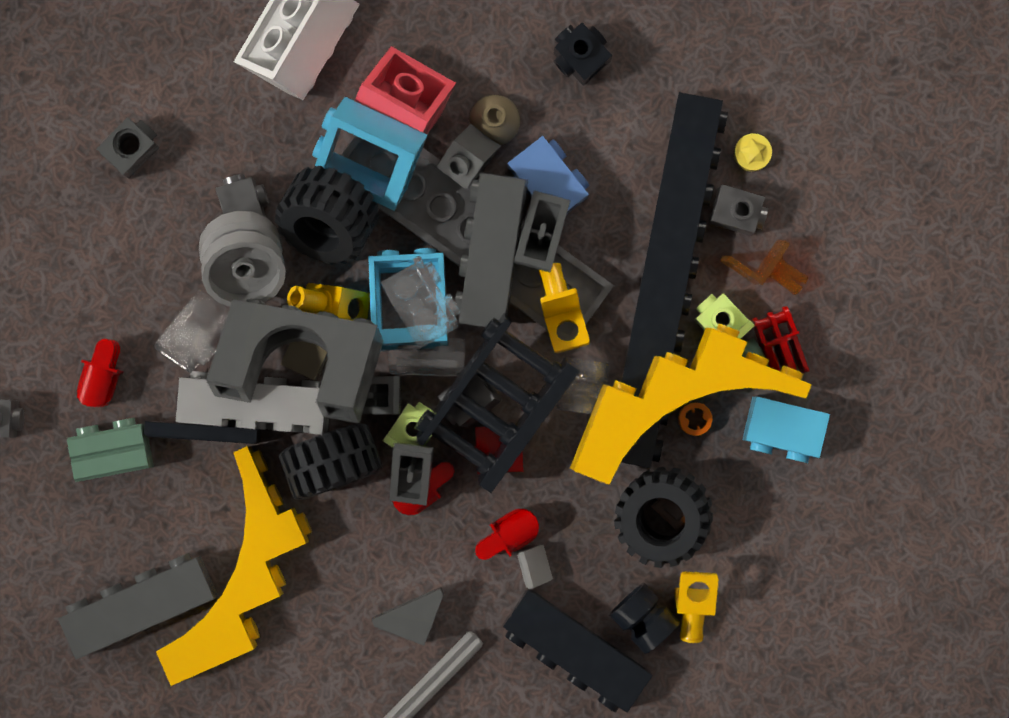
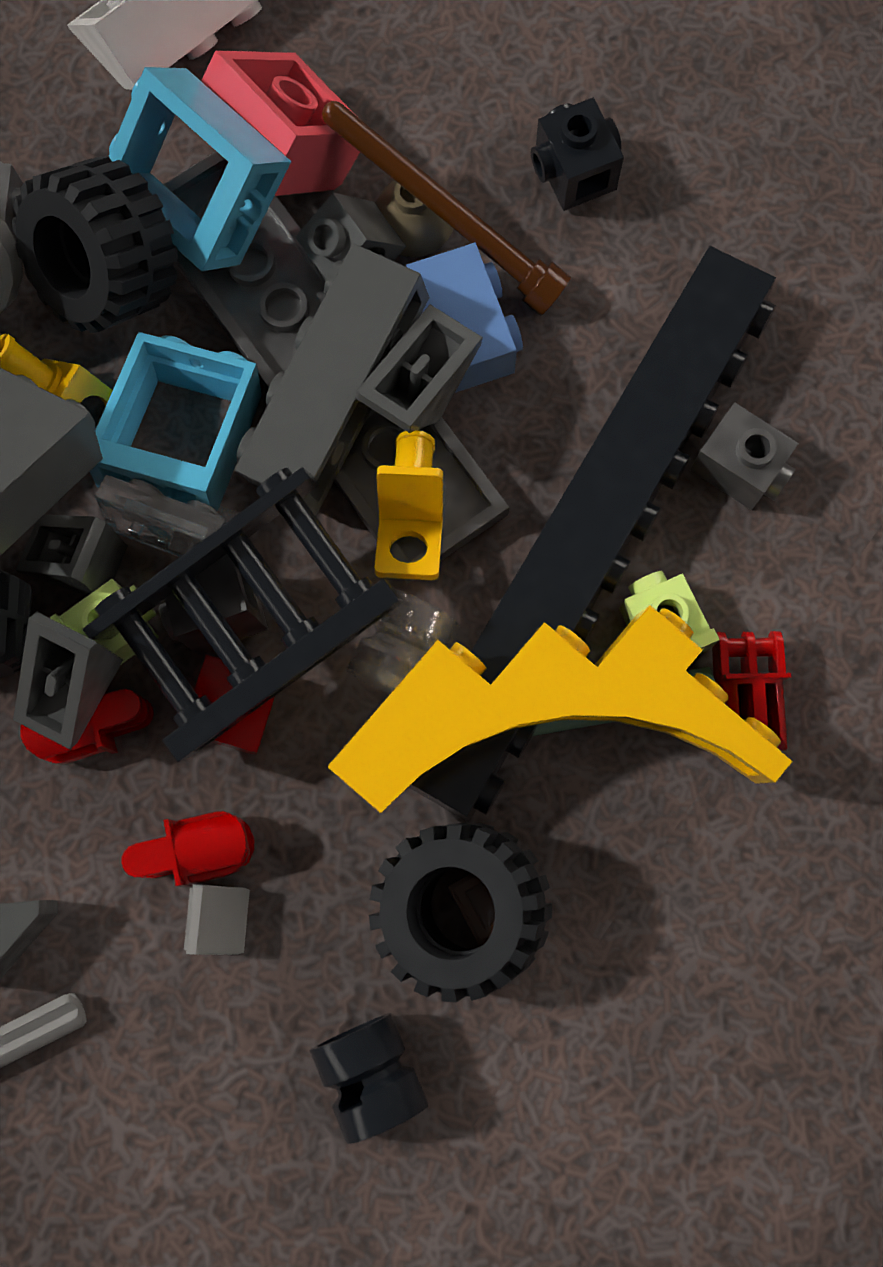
camera: 20 degrees right, 10 degrees down
(421, 303) = (183, 419): clear bracket -> none
(576, 650) = (234, 1096): black brick -> none
(586, 141) = (536, 280): none -> reddish brown piece
(684, 422) = (589, 768): orange bush -> none
(695, 604) = (465, 1083): yellow bracket -> none
(752, 152) = (794, 384): light yellow tile -> none
(773, 267) = (775, 564): clear orange bracket -> none
(785, 427) = (719, 831): medium azure brick -> none

